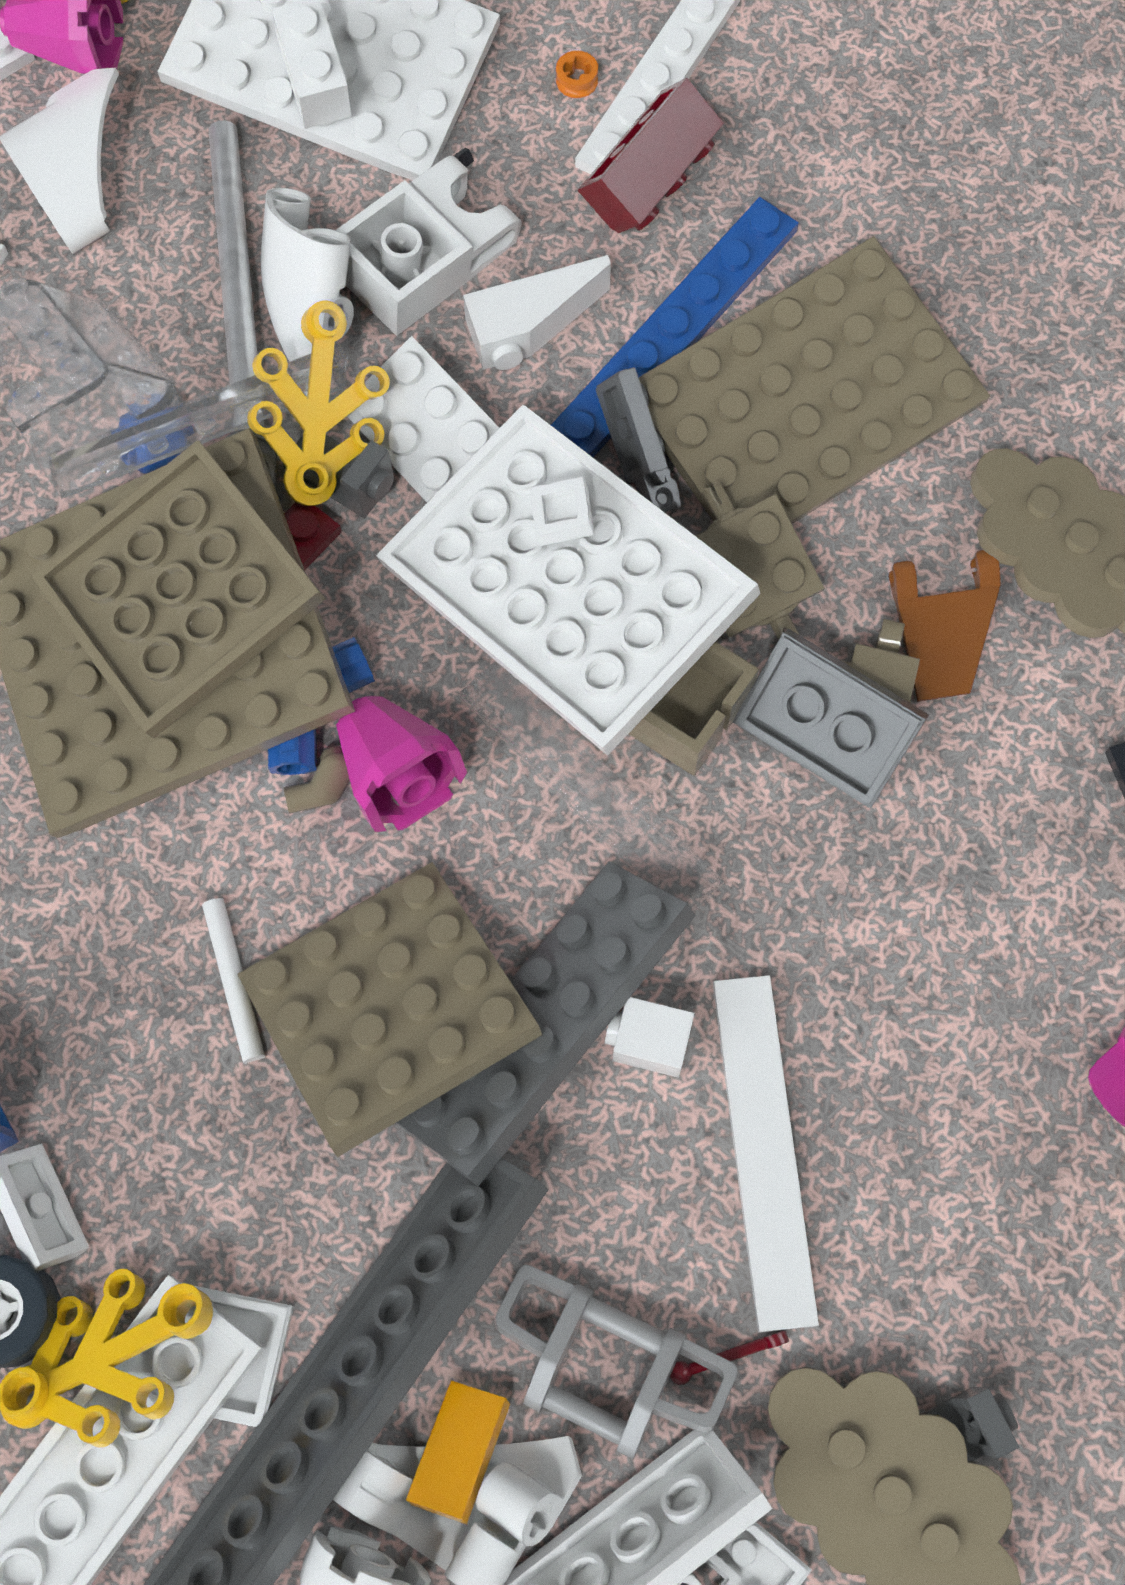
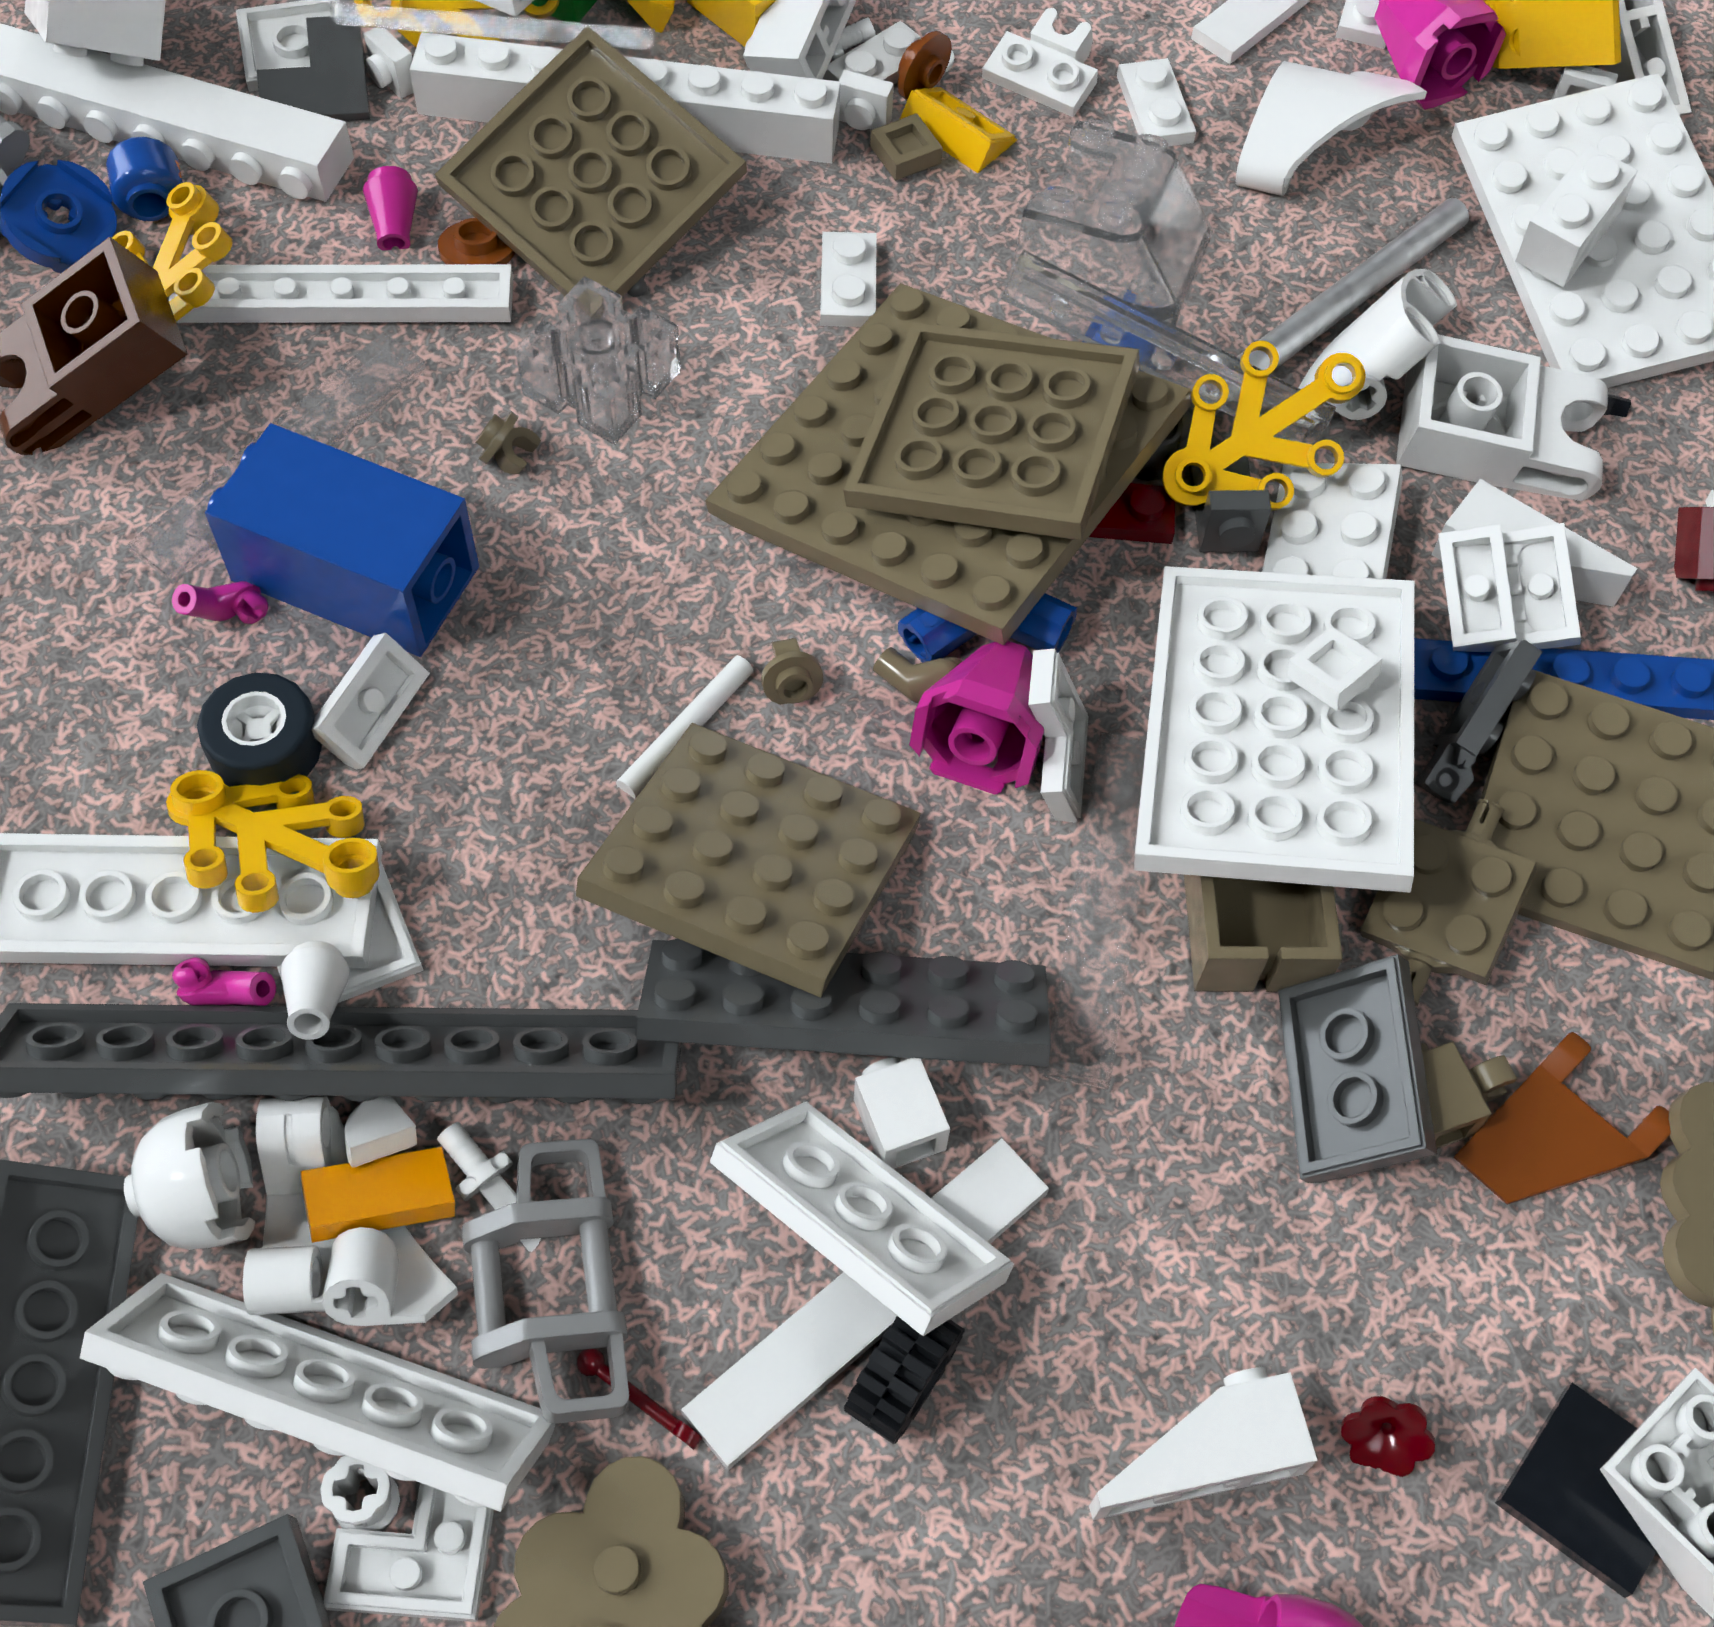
camera: 50 degrees right, 10 degrees down
(200, 1473) = (221, 987): none -> dark pink arm
(254, 875) = (791, 674): none -> dark tan plate
(265, 1402) = (312, 987): none -> white cone
(413, 1424) = (377, 1130): none -> white tile
(439, 715) = (1065, 725): none -> white tile
(490, 1363) = (481, 1172): none -> white piece
(562, 346) = (1509, 587): none -> white slope
(715, 1117) = (863, 1216): none -> white tile
(840, 1162) = (901, 1376): none -> black tyre
(1011, 993) = (1231, 1441): none -> white slope
(1071, 883) = (1388, 1435): none -> dark red plant

